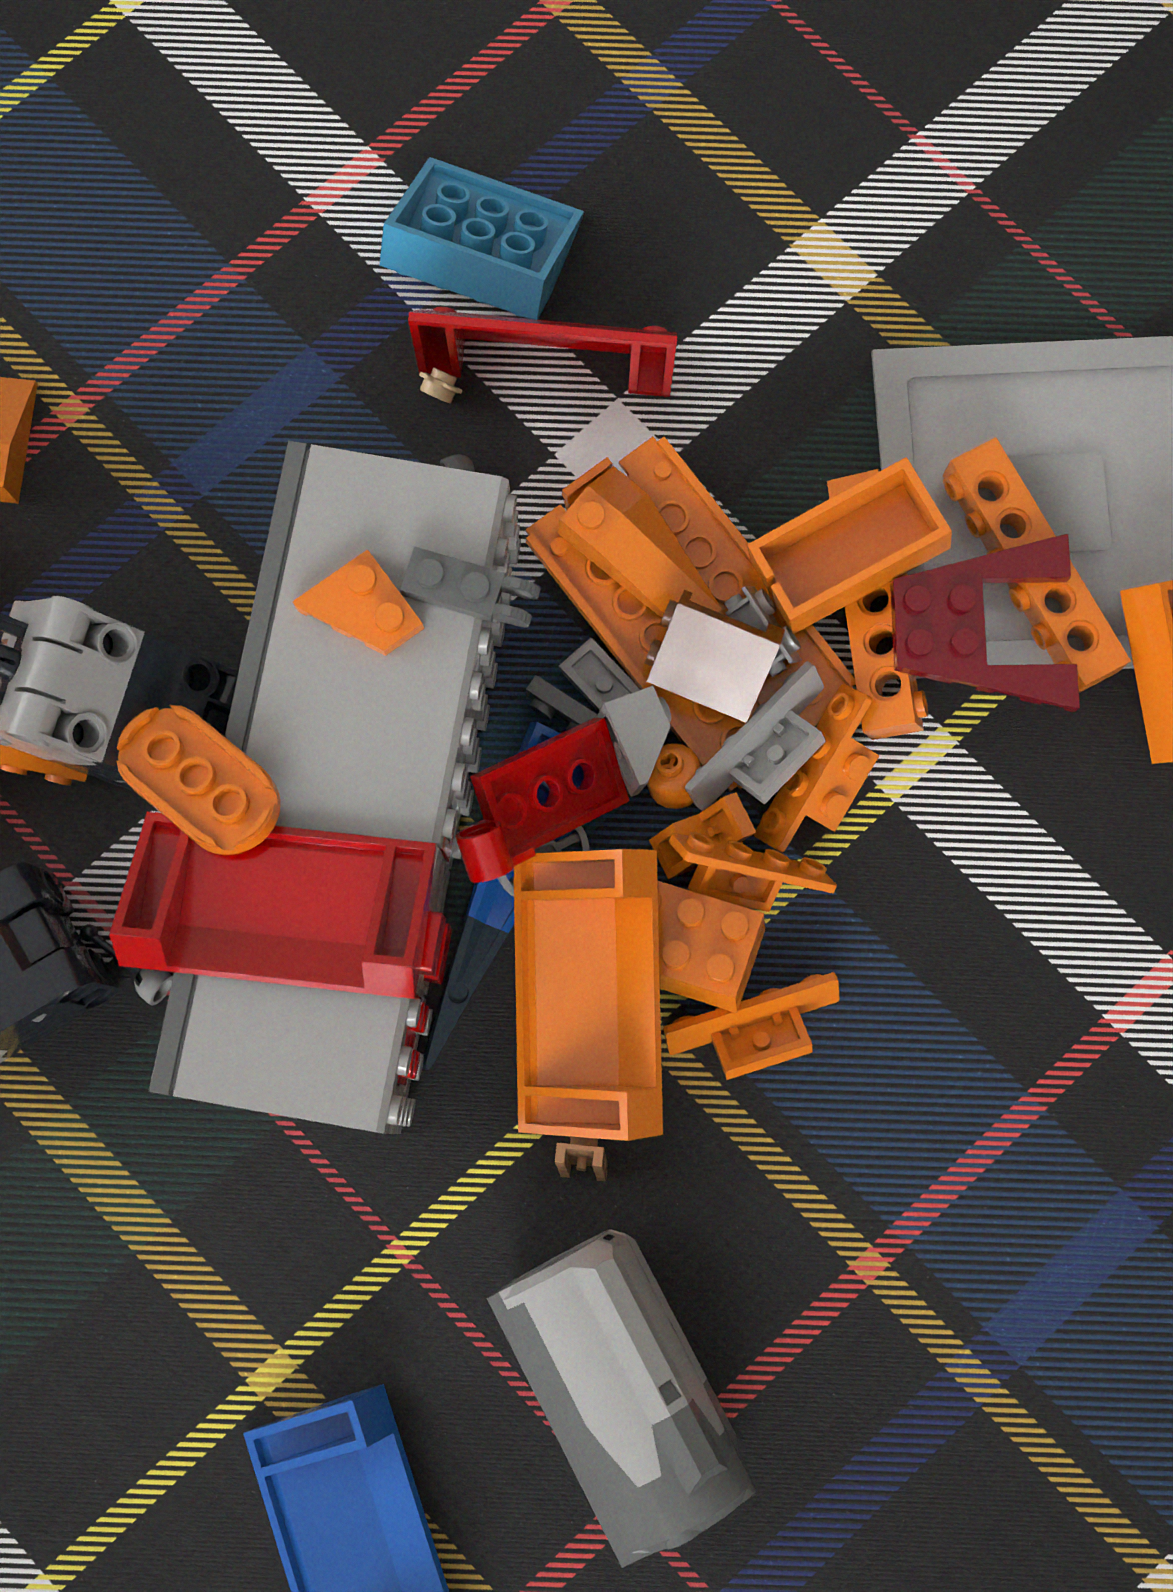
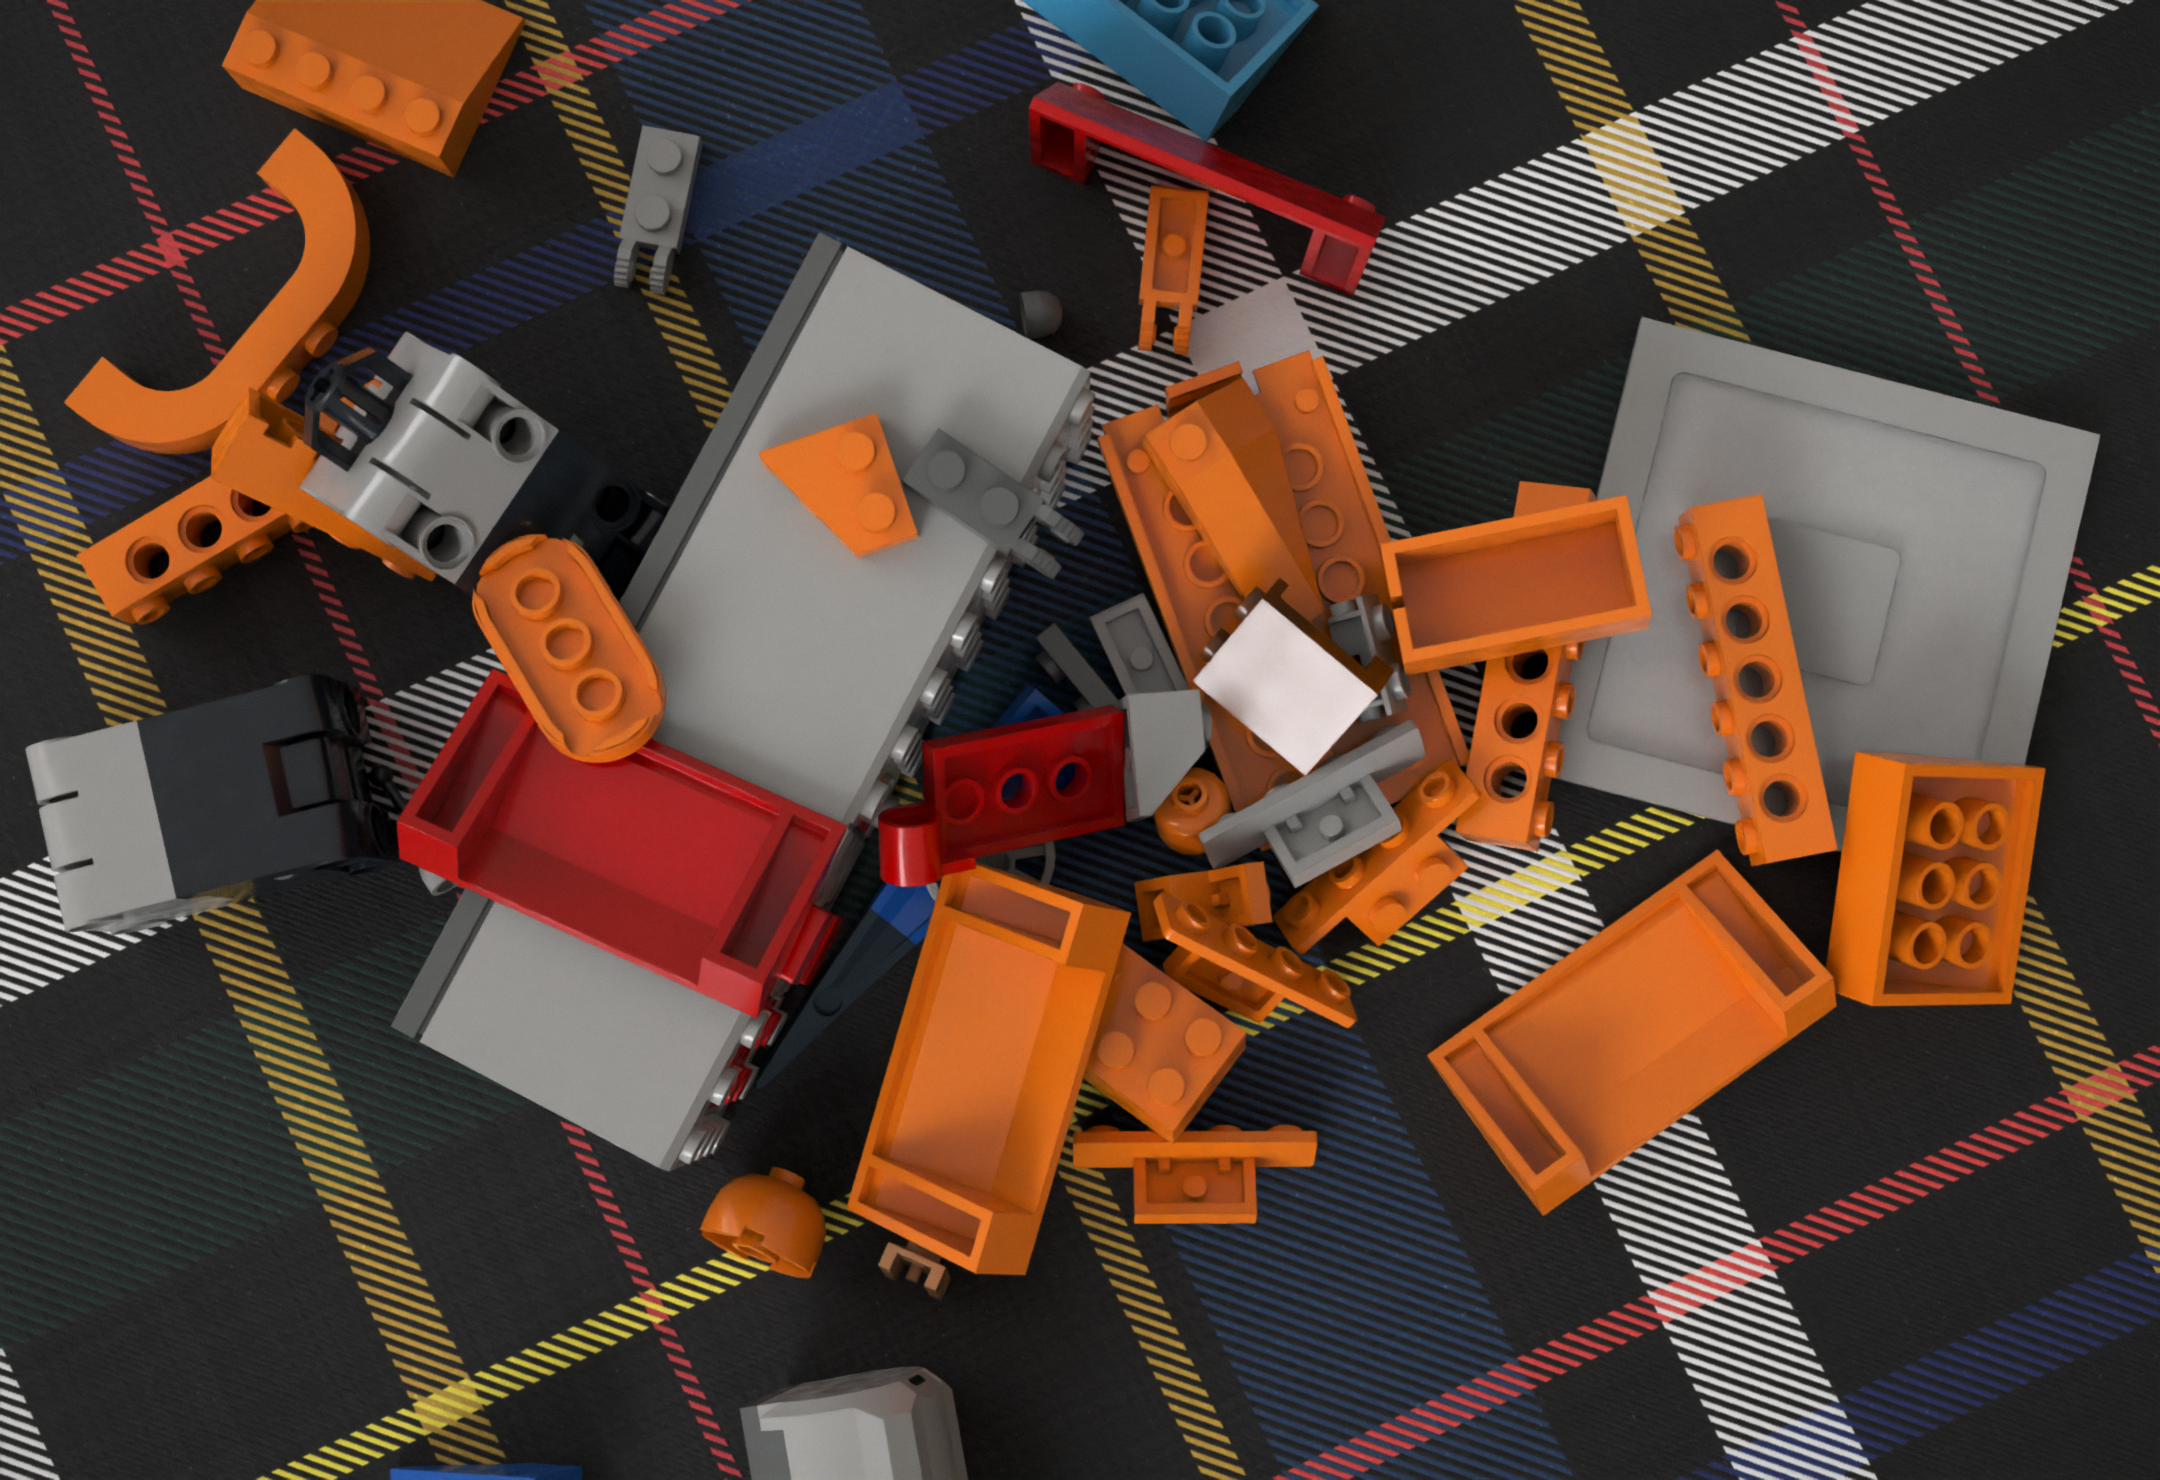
camera: 15 degrees right, 5 degrees up
(167, 477) = (657, 204): none -> light grey hinge
(439, 385) = (1051, 190): tan plate -> none
(464, 1161) = (768, 1221): none -> orange cylinder
(538, 409) = (1172, 261): none -> orange hinge
(942, 624) = (1604, 729): dark red wing -> none
(1031, 835) = (1633, 1030): none -> orange slope

